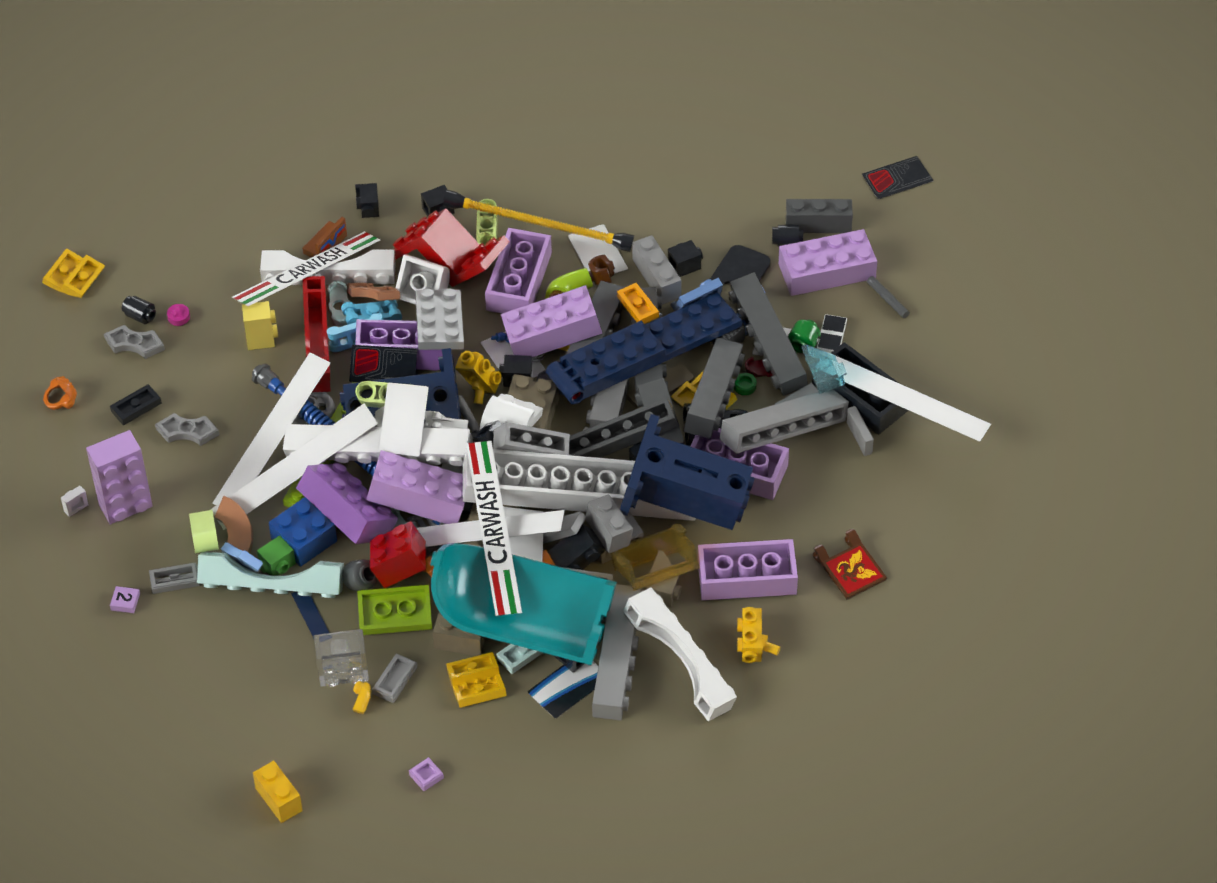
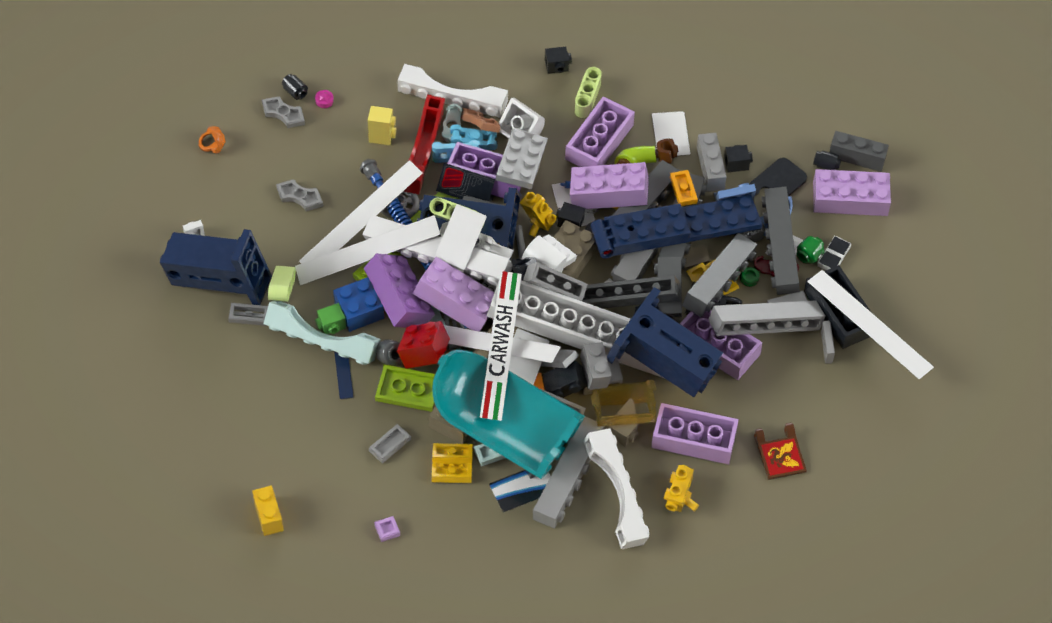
camera: 15 degrees right, 5 degrees up
(73, 273) = (255, 43): yellow slope -> none
(118, 528) = (217, 264): none -> dark blue brick
(119, 477) = (228, 214): lavender brick -> none
(124, 599) = (205, 321): lavender tile -> none
(135, 404) = (266, 164): black plate -> none
(237, 524) = (310, 284): nougat tile -> none
(242, 557) = (303, 312): light blue tile -> none
(305, 268) = (433, 88): white sticker -> none
(326, 238) = (459, 67): dark orange panel -> none
(341, 657) = (351, 416): clear brick -> none
(363, 691) = (362, 447): yellow arm -> none
(367, 199) = (502, 42): black brick -> none
(449, 244) = (551, 99): red bracket -> none
(620, 240) = (568, 62): yellow hose -> none
(824, 369) = (812, 284): clear light blue slope -> none
(888, 297) = (891, 234): dark grey piece -> none
(897, 177) = (936, 134): black sticker -> none

